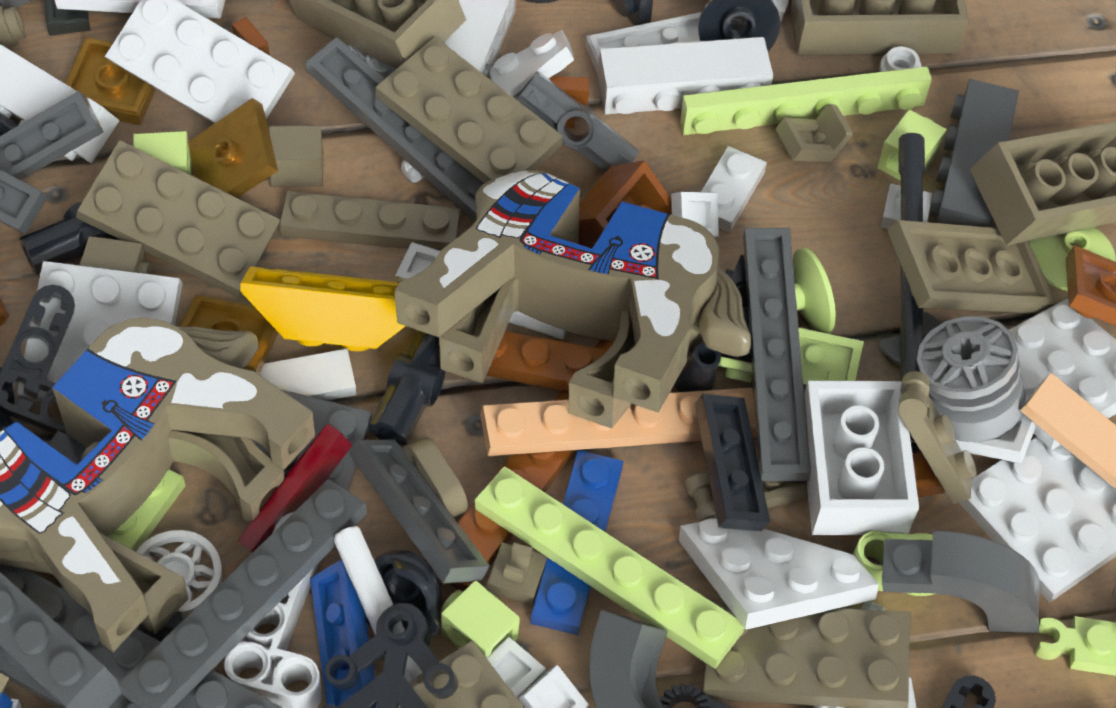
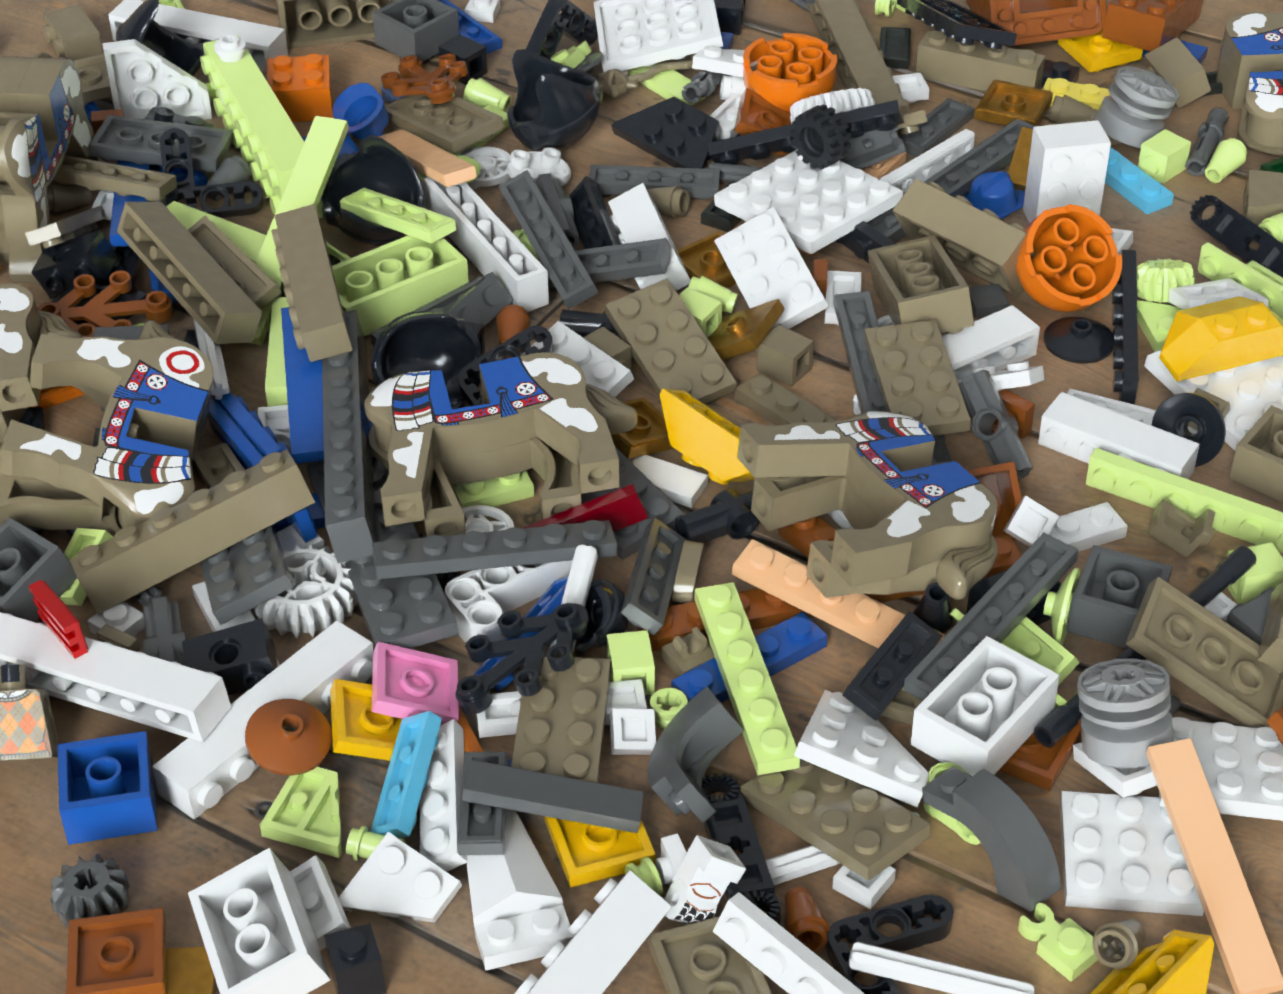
camera: 45 degrees right, 15 degrees down
(151, 121) = (716, 291): none -> yellowish green cone
(288, 46) = (839, 283): none -> white plate
(559, 633) = (662, 700): none -> yellowish green bush
(850, 245) = (1111, 594): none -> dark grey brick
(935, 437) = (1056, 729): dark tan plate -> none

